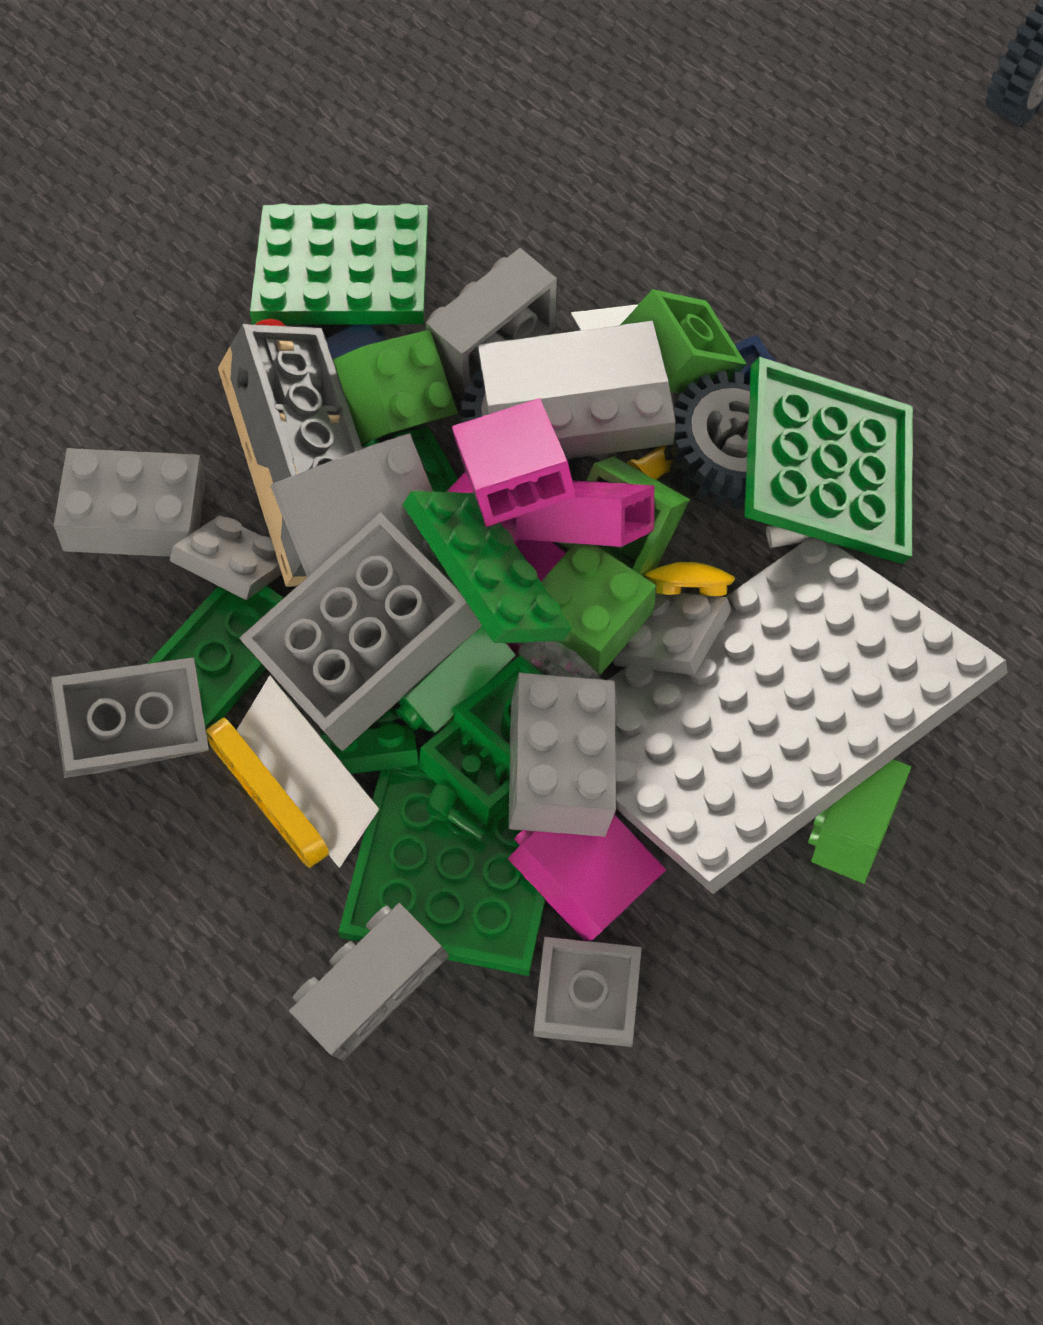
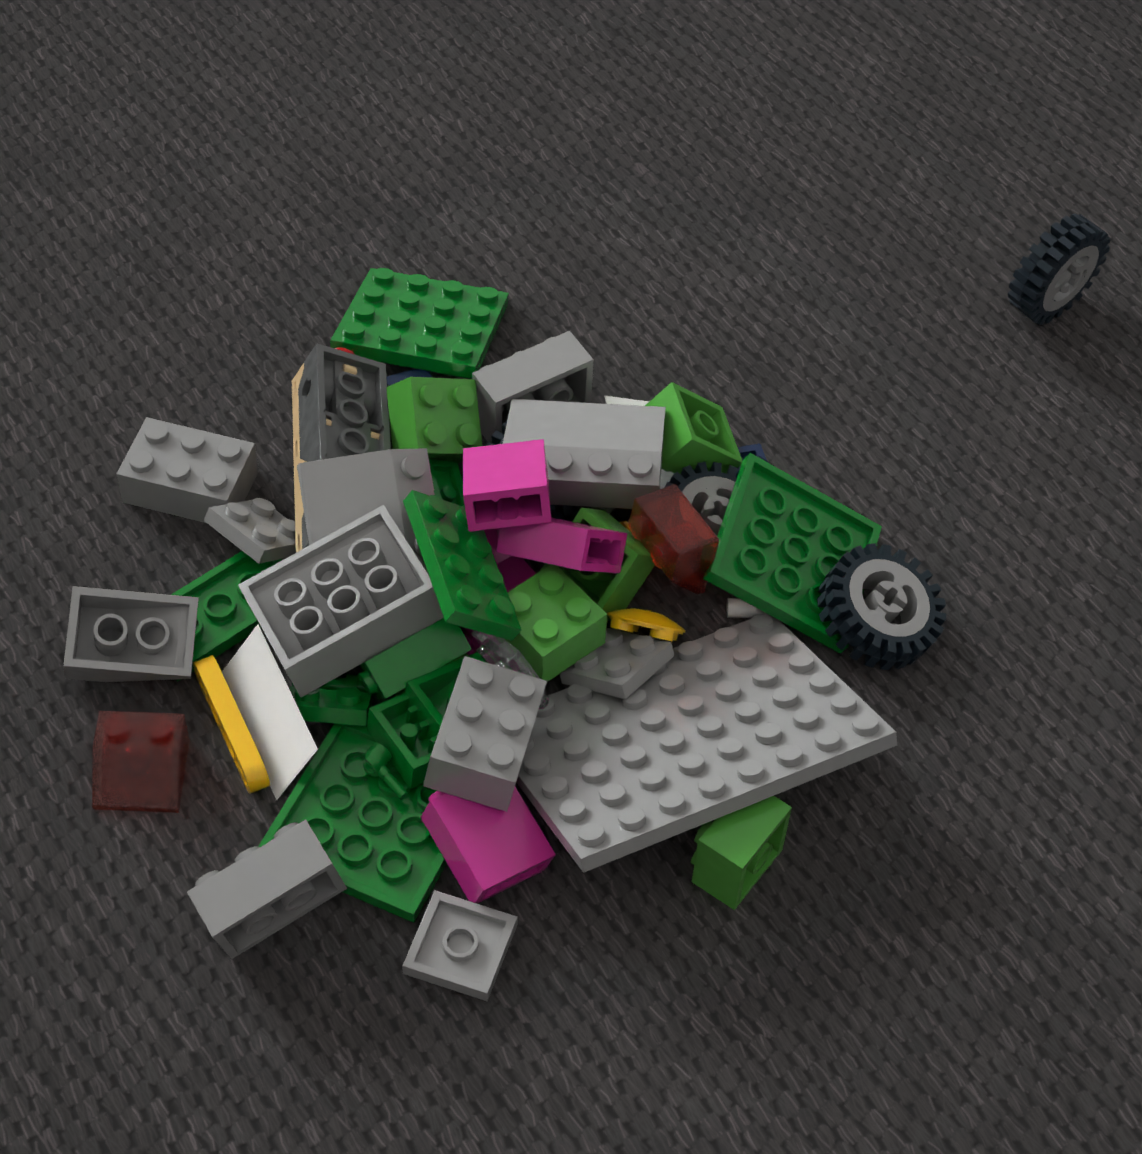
camera: 10 degrees right, 10 degrees down
(178, 860) = (139, 761): none -> clear red slope
(705, 476) = (674, 536): none -> clear red slope
(924, 520) = (895, 591): none -> wheel

